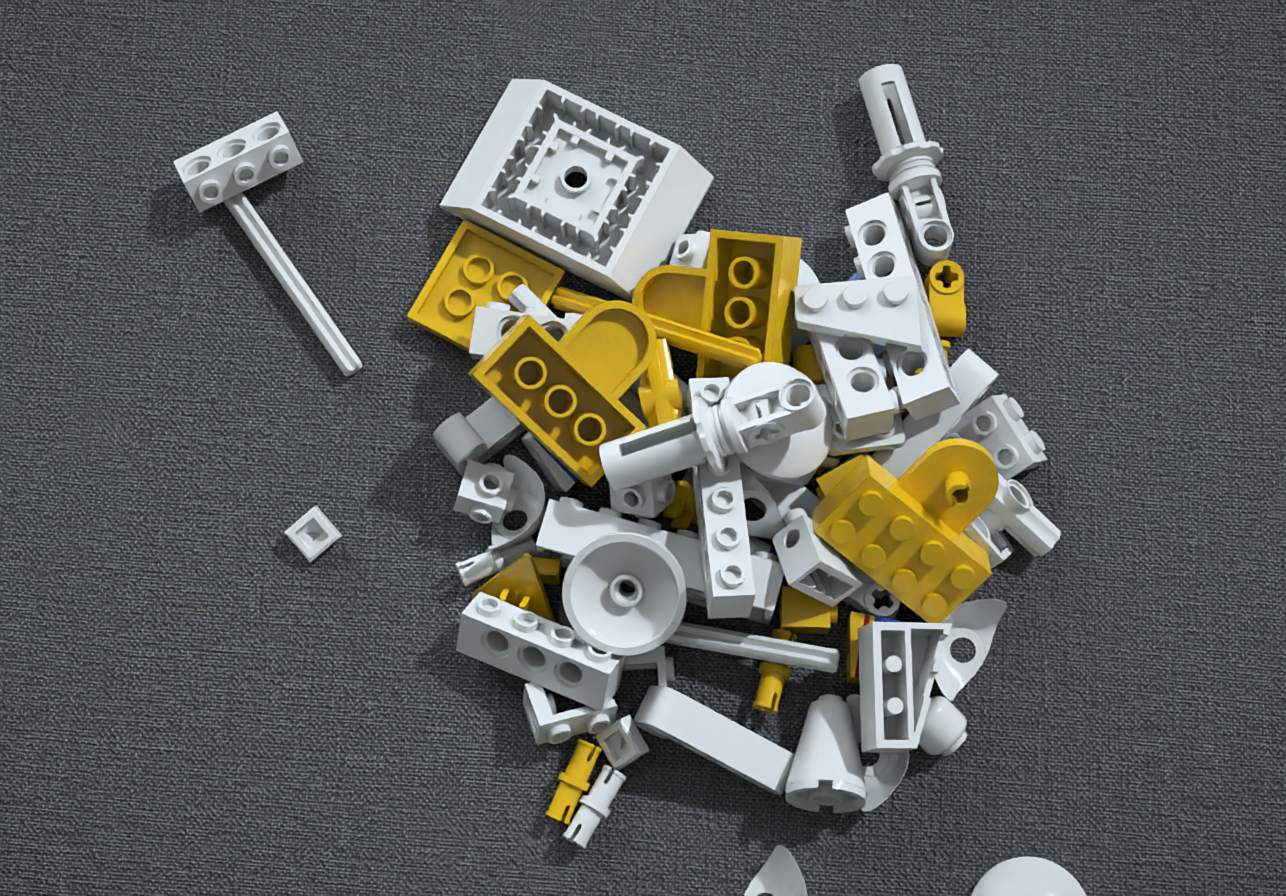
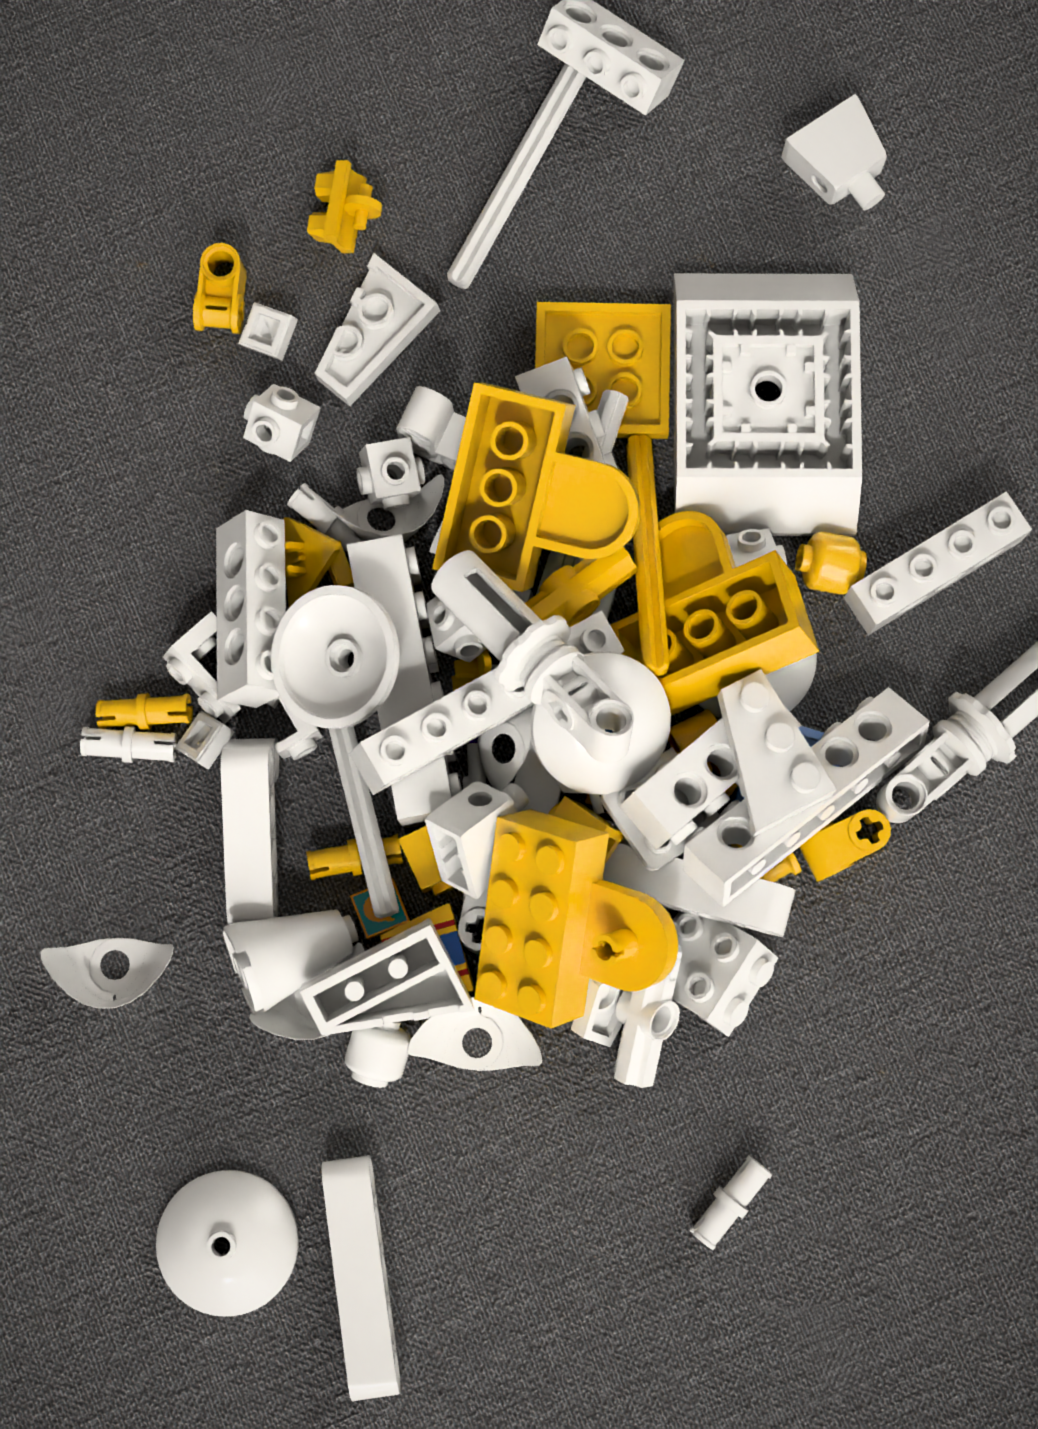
camera: 70 degrees right, 5 degrees up
(231, 417) = (347, 208): none -> yellow hips
(266, 557) = (220, 299): none -> yellow piece
(359, 451) = (378, 327): none -> white wing
(396, 557) = (280, 421): none -> white brick
(415, 40) = (839, 155): none -> white torso
(727, 204) = (831, 562): none -> yellow head
(768, 131) = (937, 563): none -> white brick
(826, 682) = (370, 923): none -> tile
(1105, 824) = (360, 1278): none -> white beam
(1173, 518) = (730, 1202): none -> white pin

